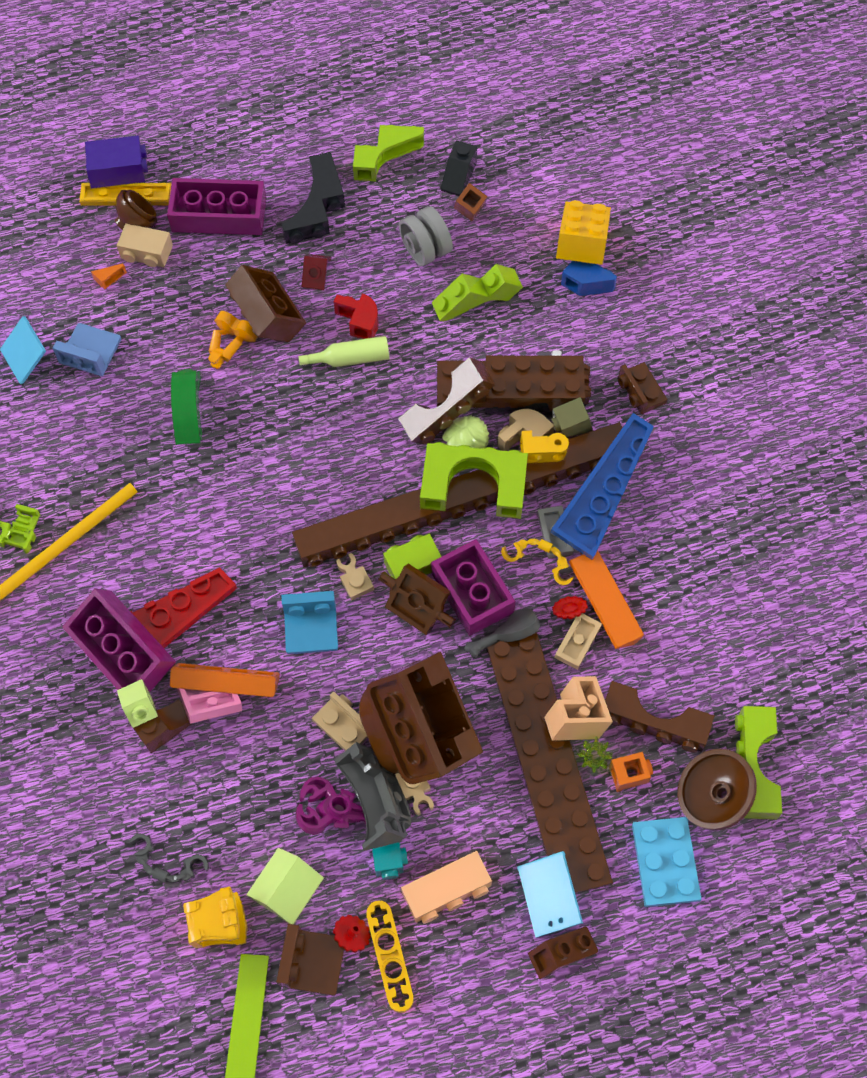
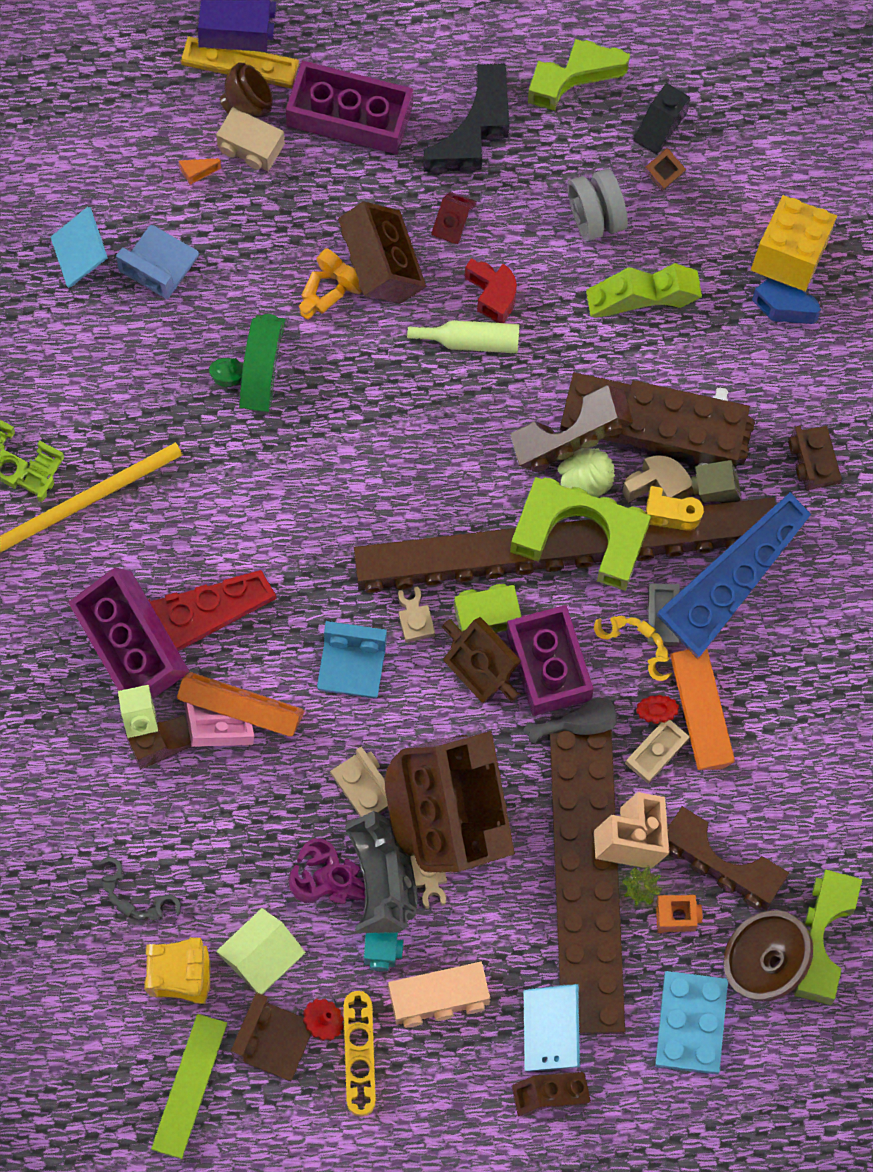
camera: 10 degrees right, 5 degrees up
(160, 420) = (226, 371): none -> green hat

